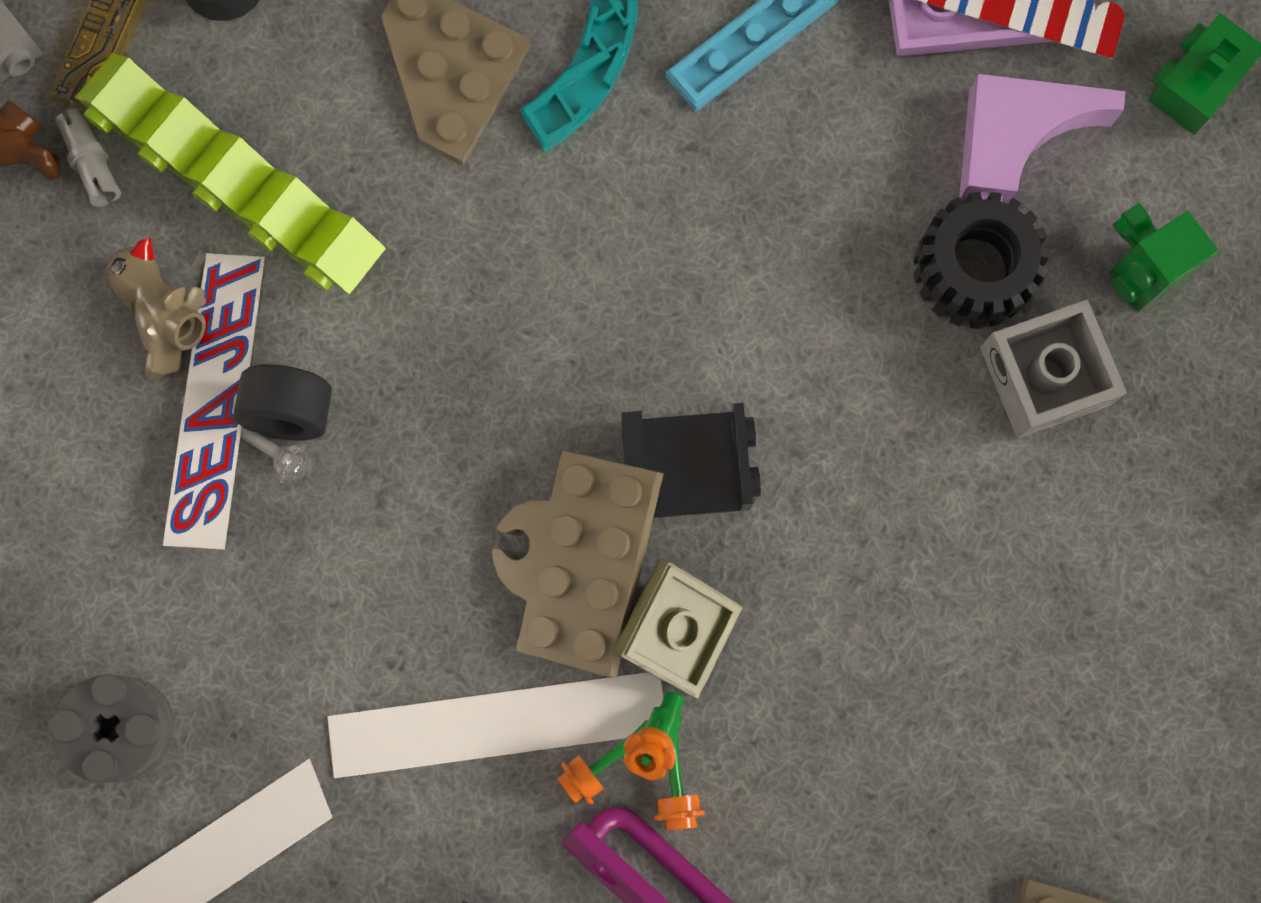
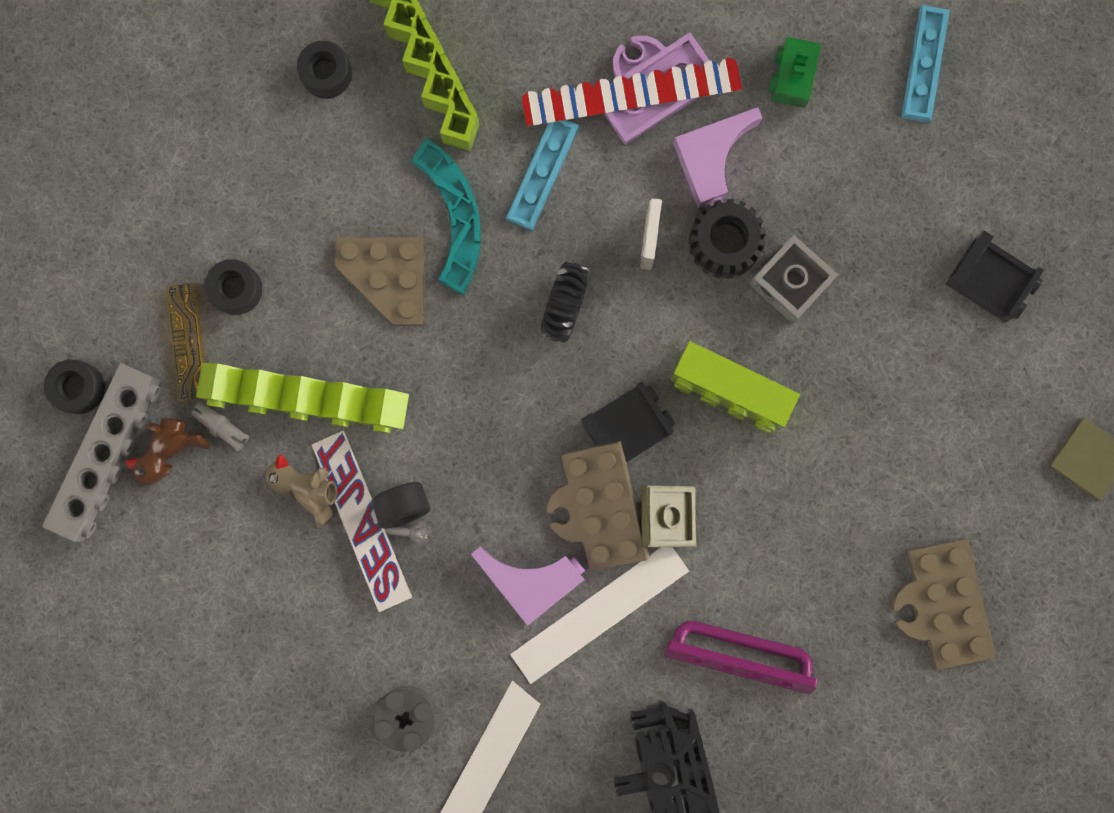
camera: 20 degrees left, 5 degrees up
(412, 634) = (534, 589): none -> lavender arch
(648, 754) = (689, 589): orange plant -> none
(688, 228) = (565, 302): none -> black gear
(868, 193) = (650, 234): none -> white tile
(878, 482) = (734, 387): none -> lime brick
(1159, 256) = (820, 191): green brick -> none

